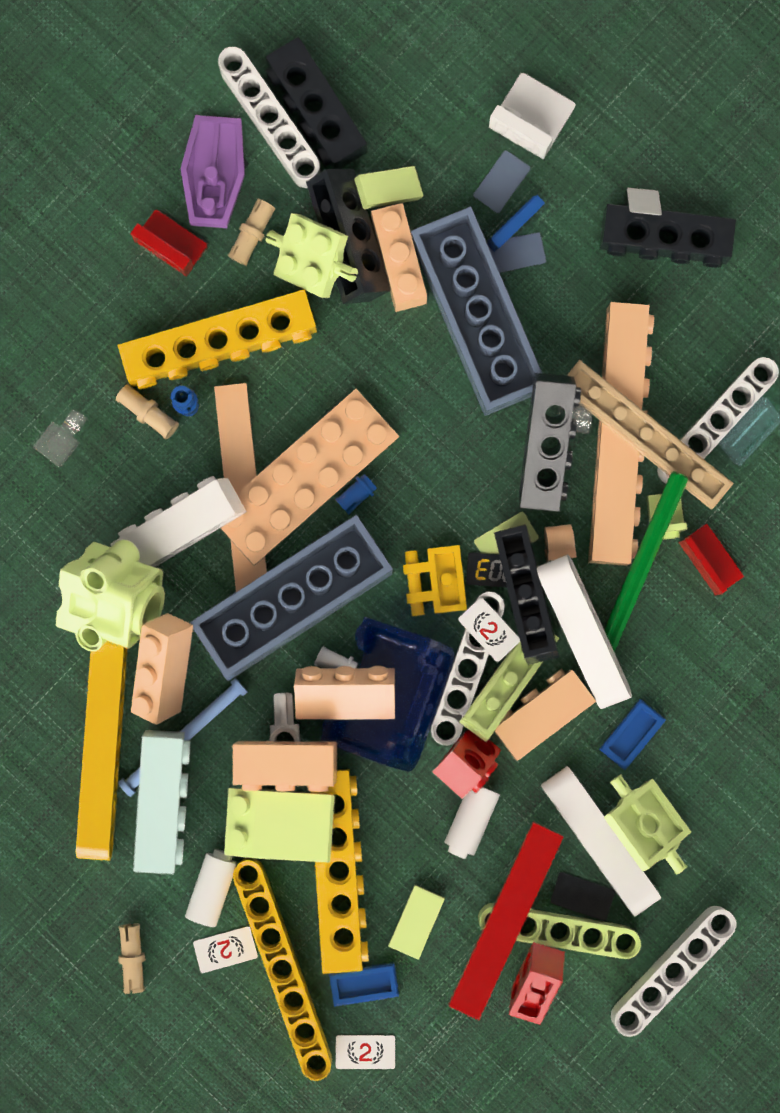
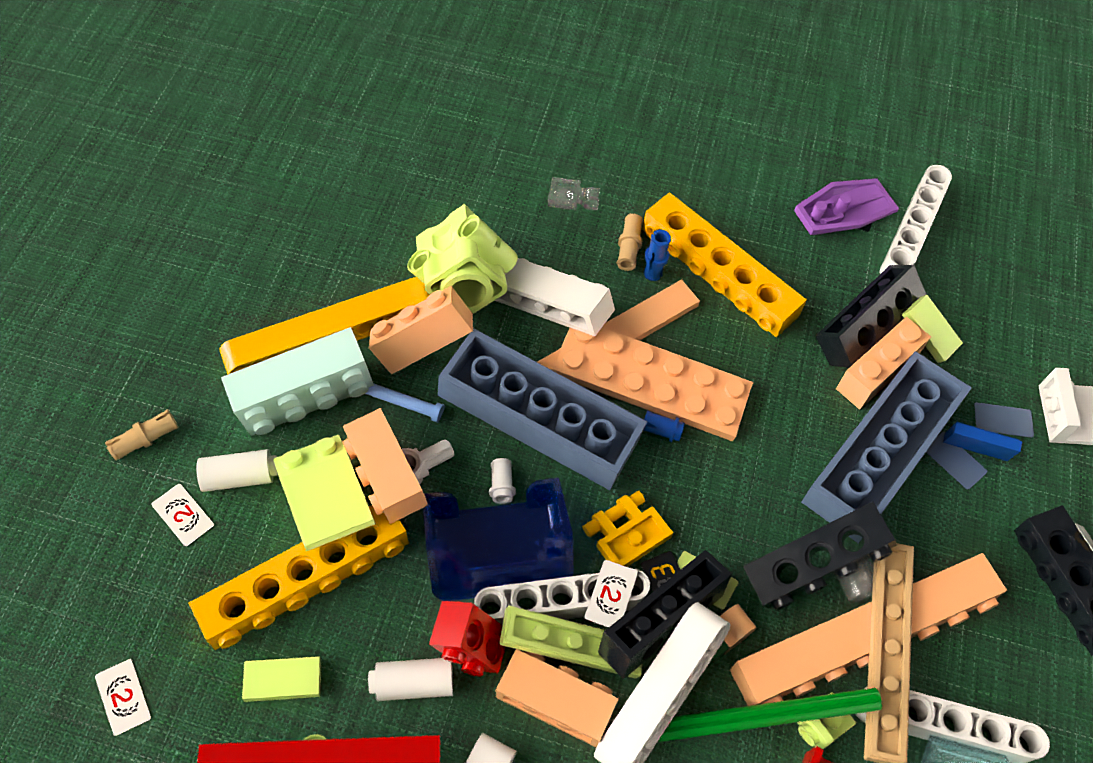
camera: 60 degrees right, 25 degrees down
(169, 242) = (770, 202): red panel -> none
(251, 232) = (821, 251): tan pin -> none
(284, 984) = (175, 586): yellow beam -> none
(295, 60) = (953, 248): black brick -> none
(311, 255) = (837, 292): yellowish green plate -> none
(345, 693) = (479, 494): light nougat brick -> none
(370, 984) = (195, 659): blue tile -> none

